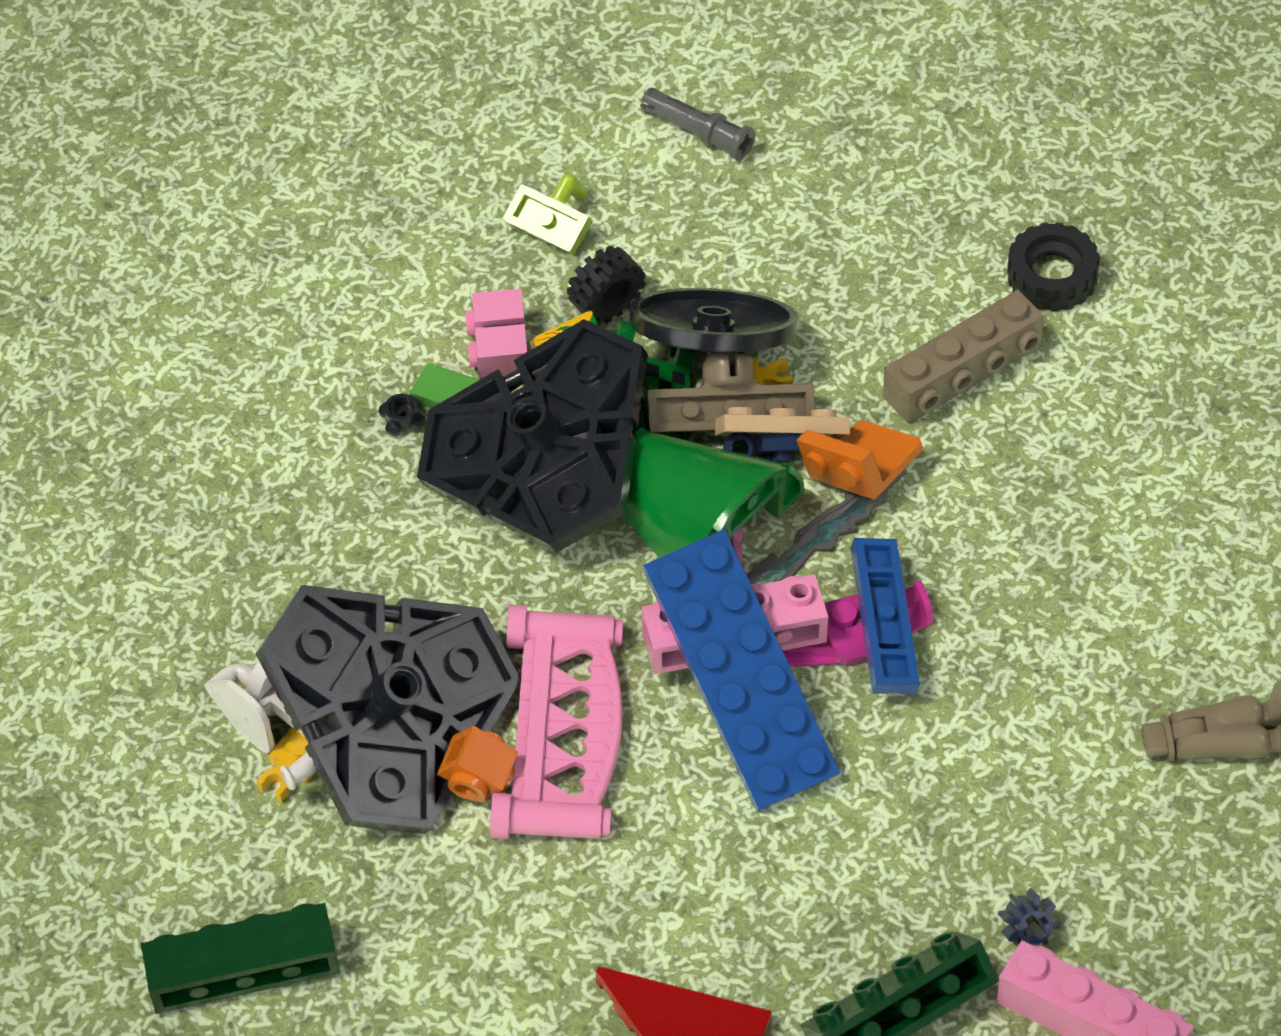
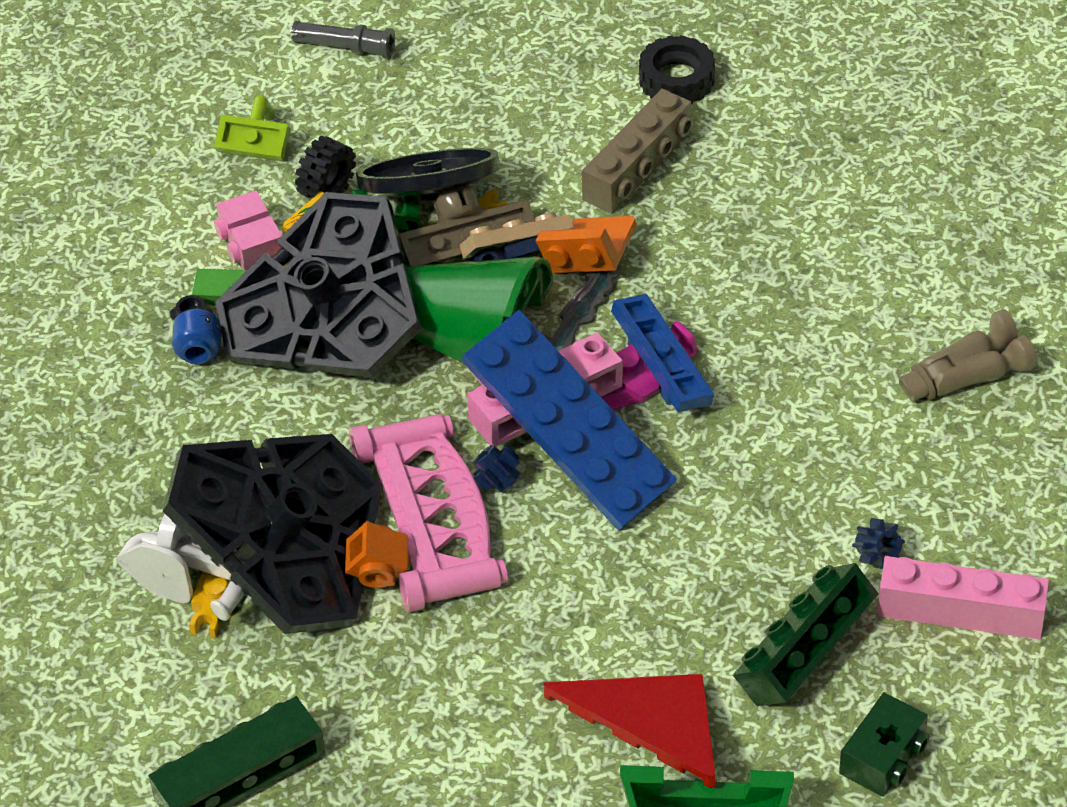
camera: 20 degrees left, 5 degrees down
(393, 445) = (196, 336): none -> blue head
(648, 699) = (496, 468): none -> dark blue gear

